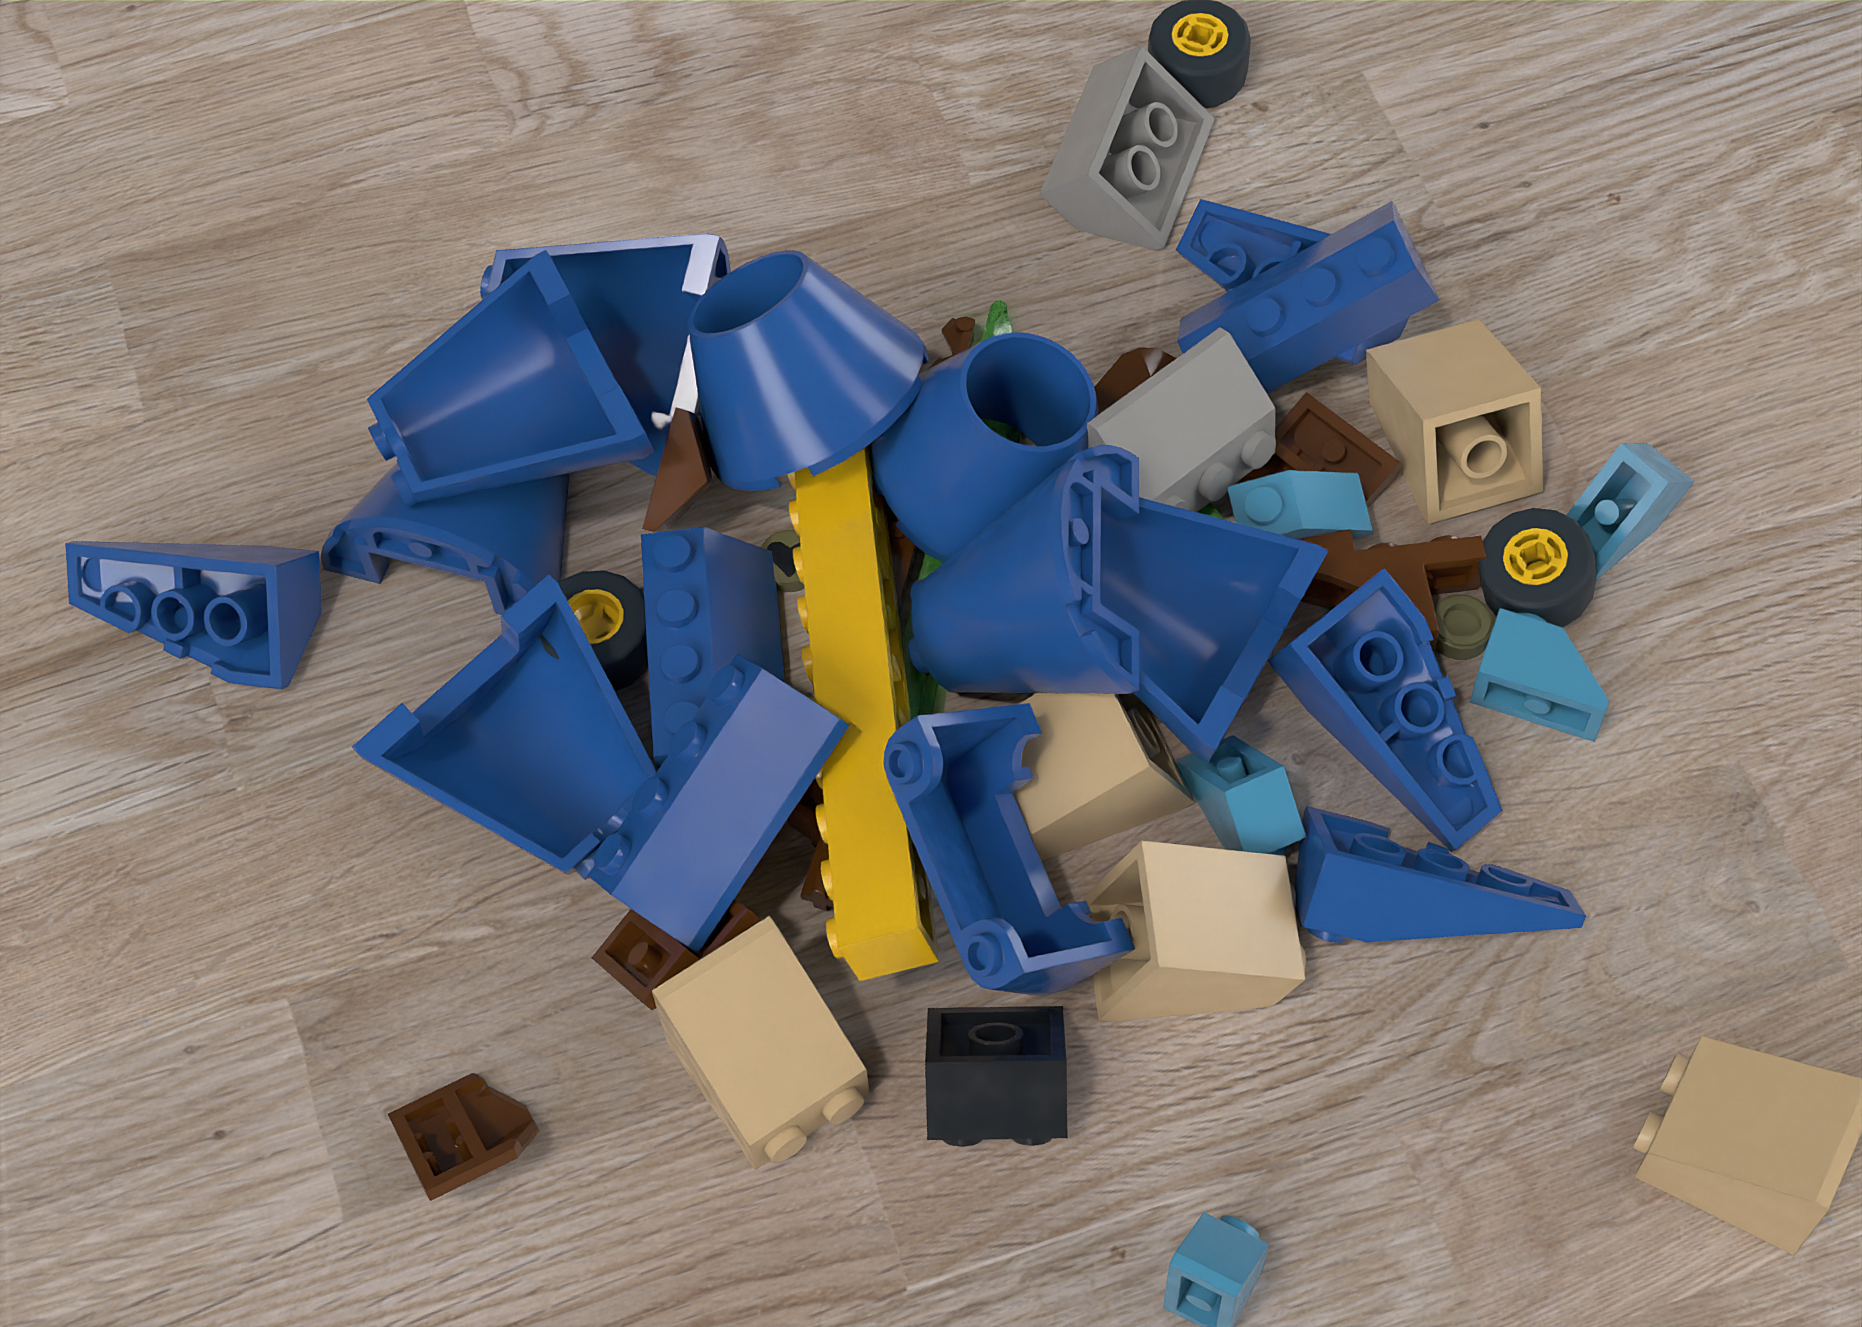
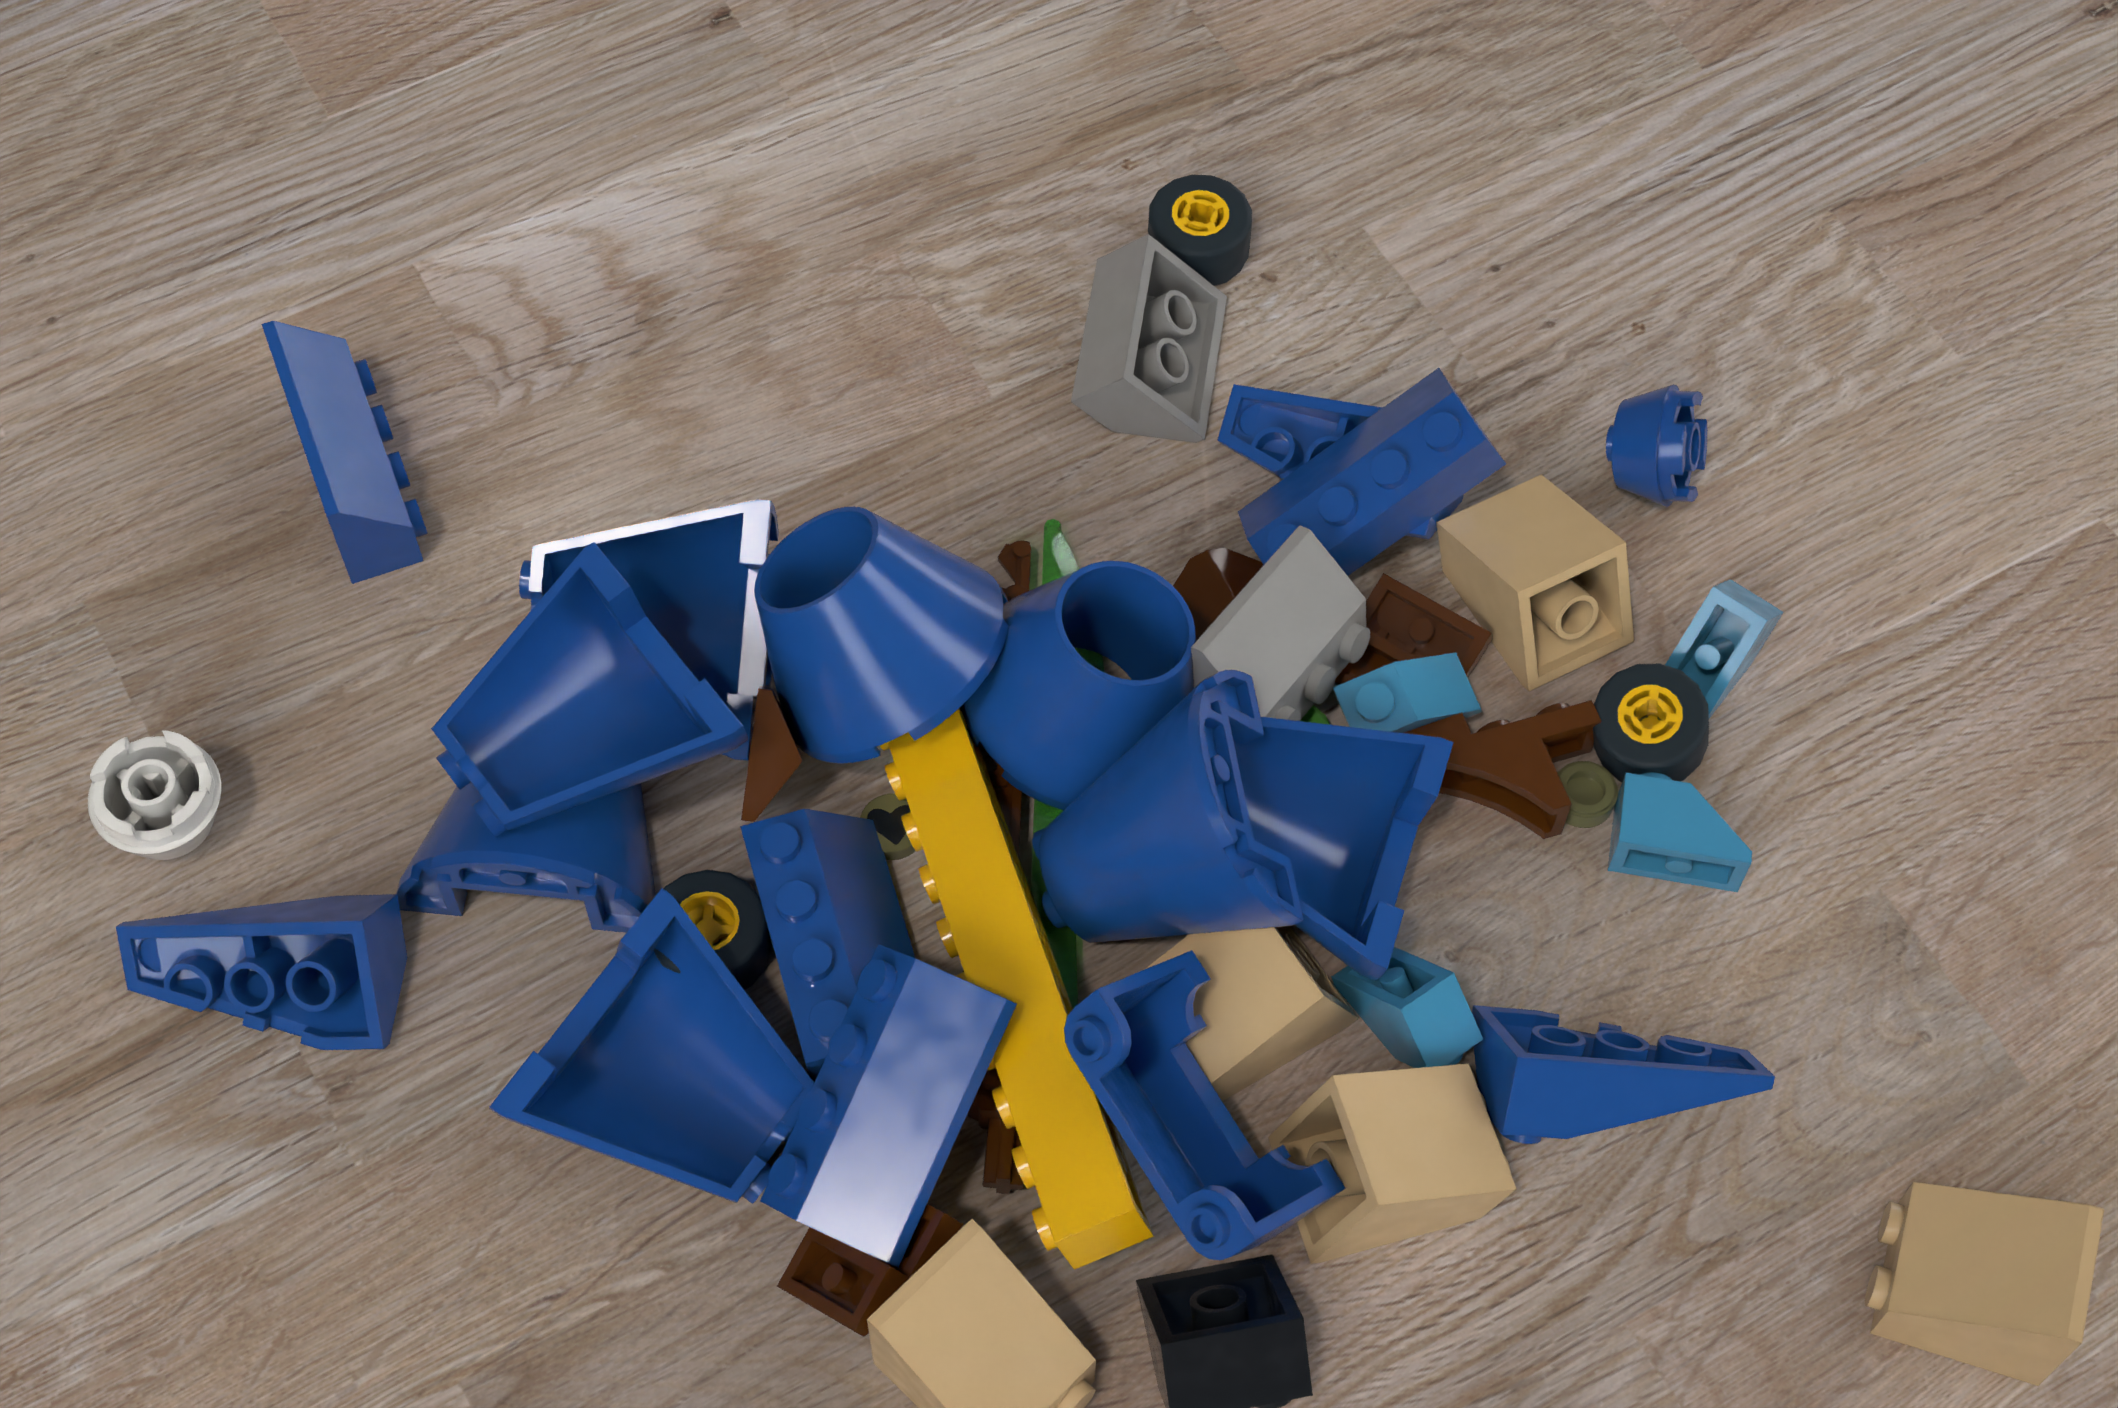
camera: 15 degrees left, 0 degrees up
(124, 433) = (154, 795): none -> white cone
(359, 152) = (347, 450): none -> blue slope
(1384, 698) = (1525, 879): blue wedge -> none
(1603, 306) = (1658, 445): none -> blue cone

